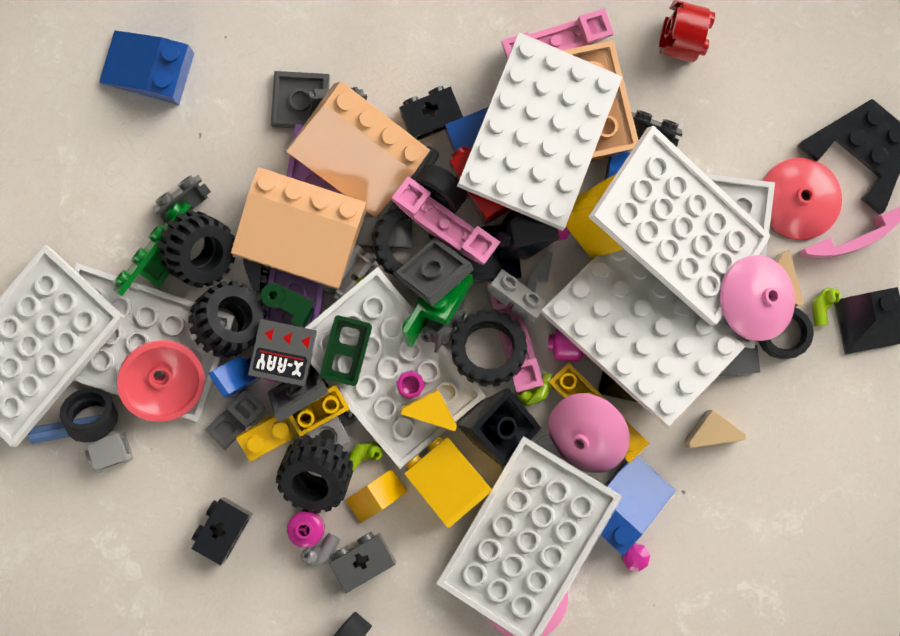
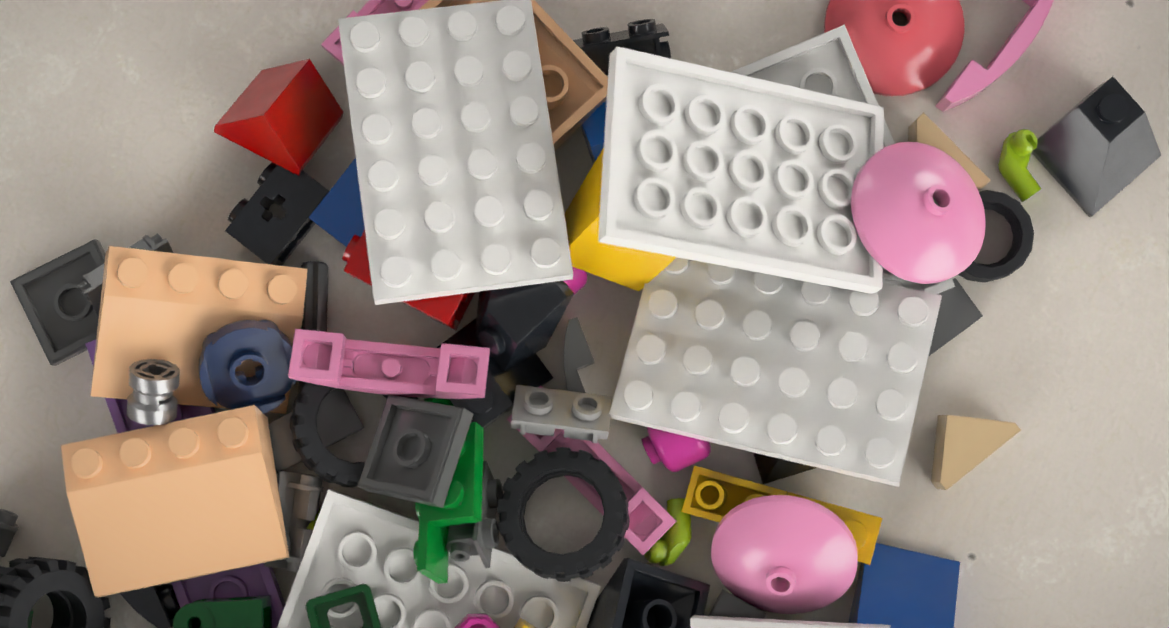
camera: 25 degrees left, 0 degrees up
(319, 167) = (153, 392): none -> flat silver wheel
(372, 166) = (243, 341): none -> dark blue plate
(442, 187) = (356, 315): black tyre -> none
(461, 65) = (283, 115): none -> red slope

